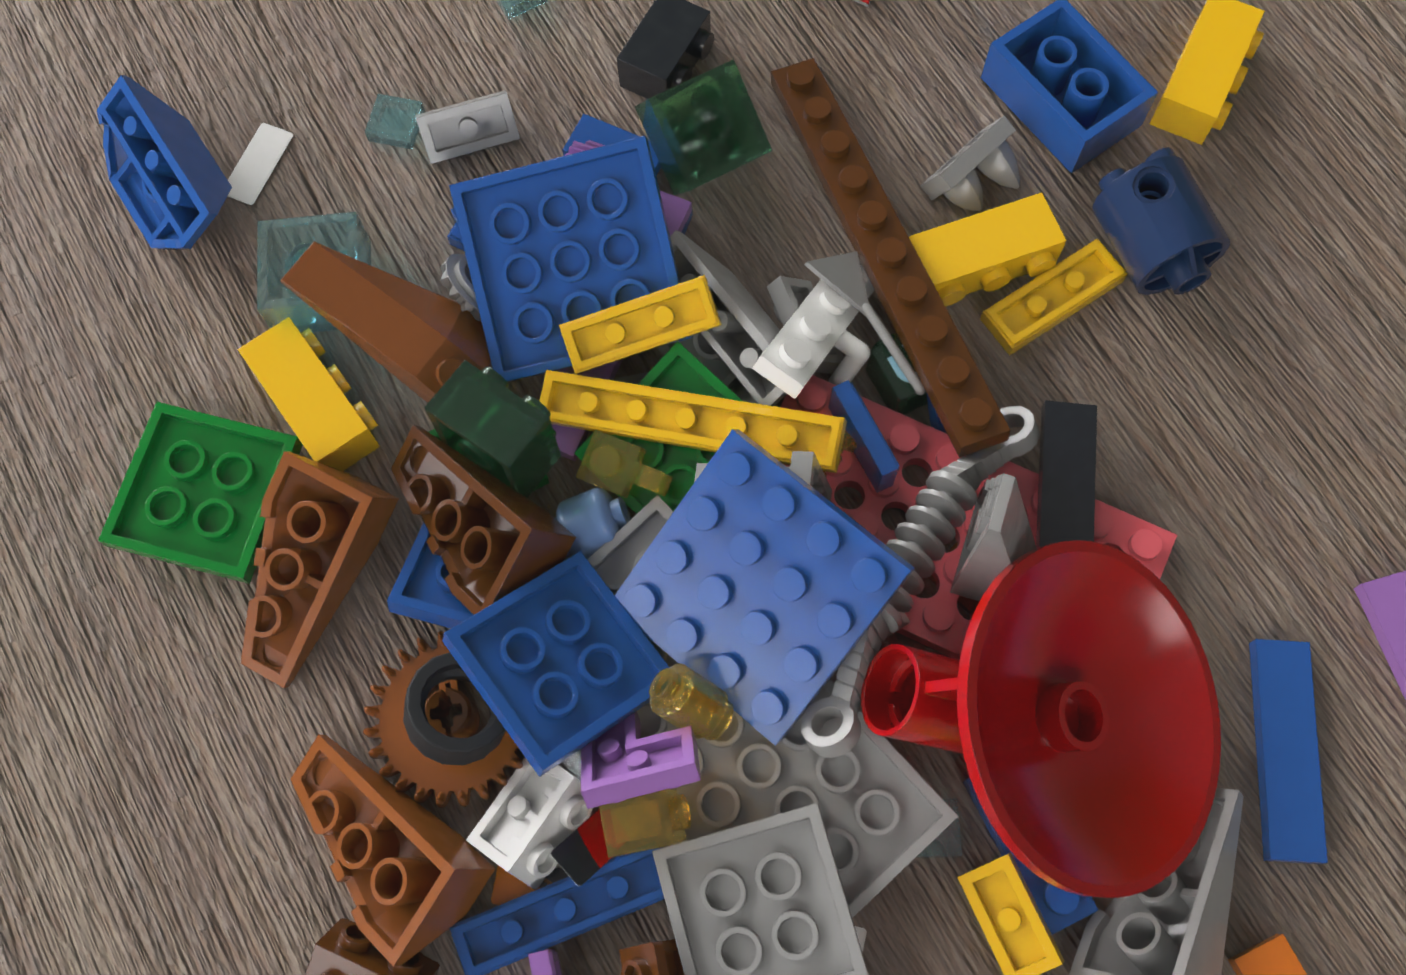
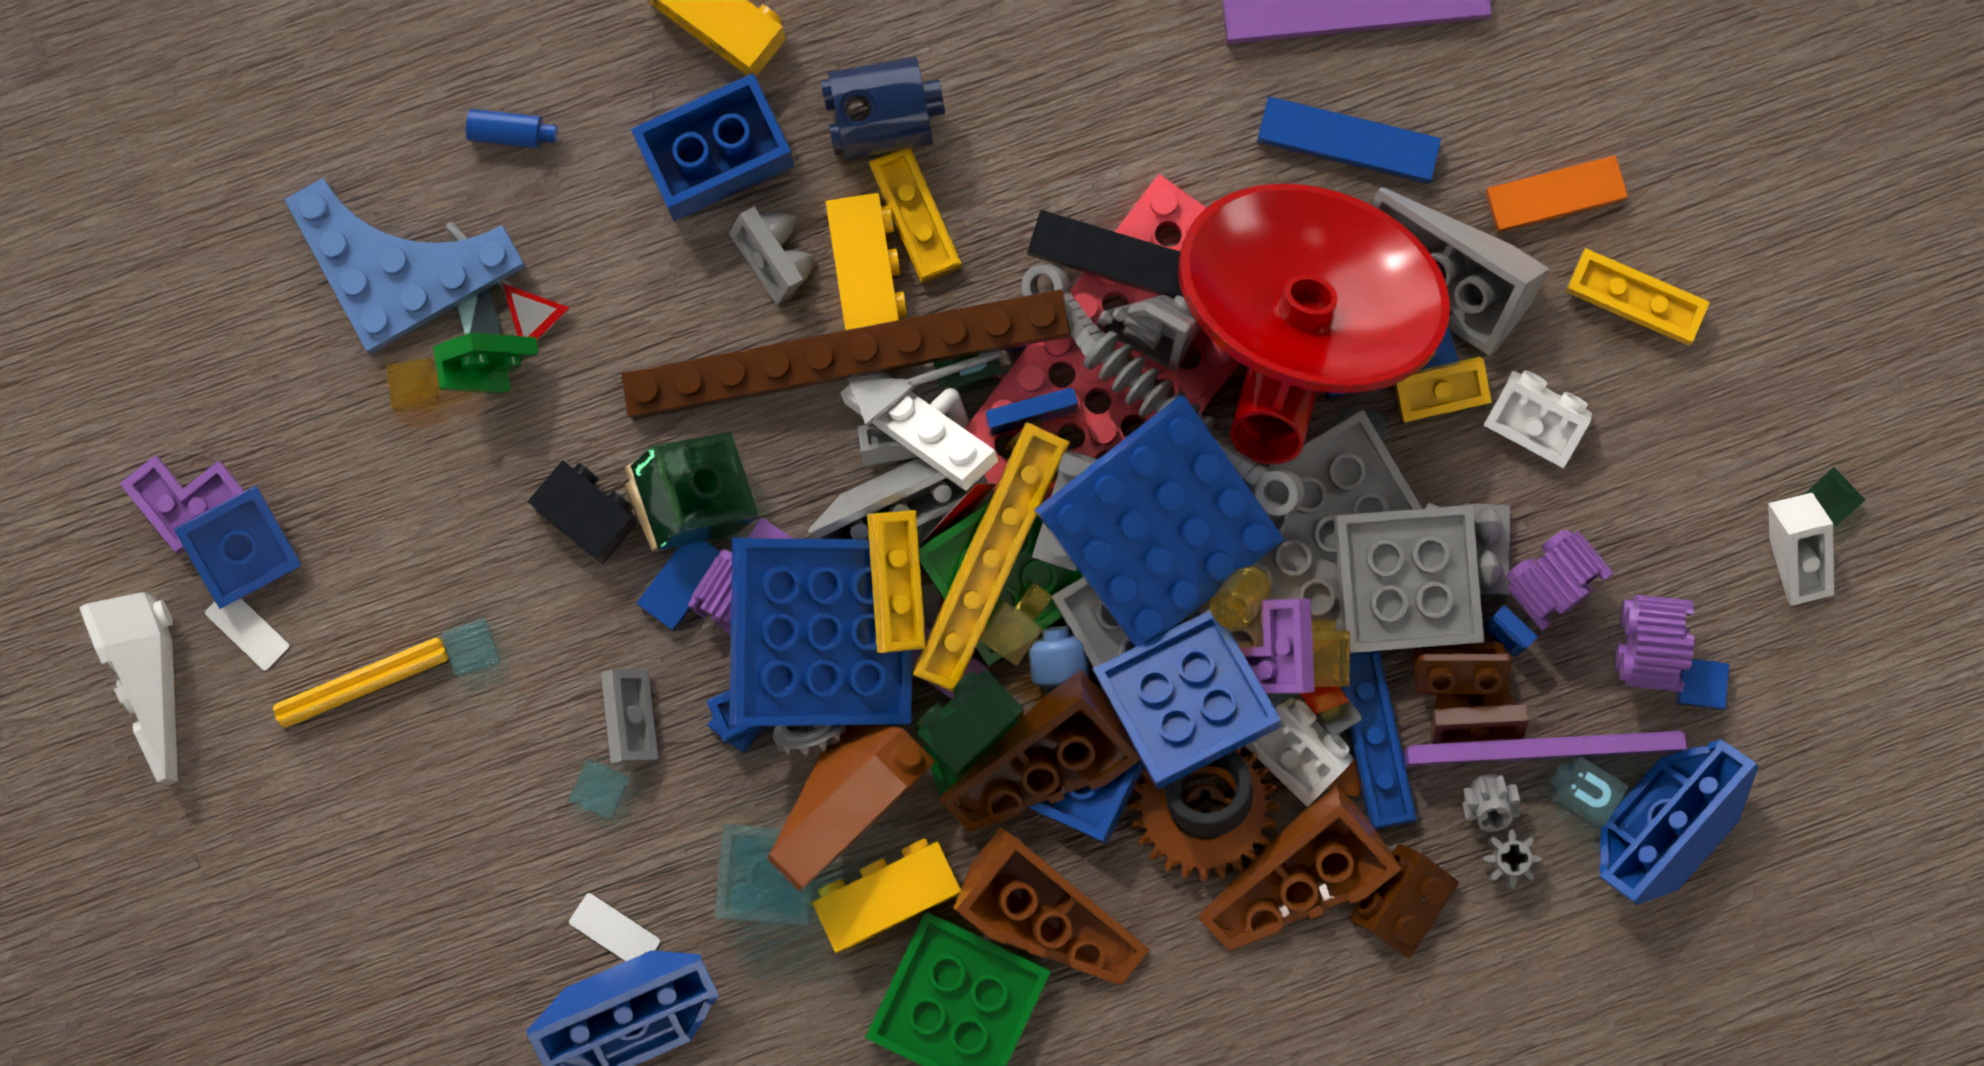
camera: 80 degrees left, 10 degrees up
(743, 383) = (963, 507): none -> red sticker

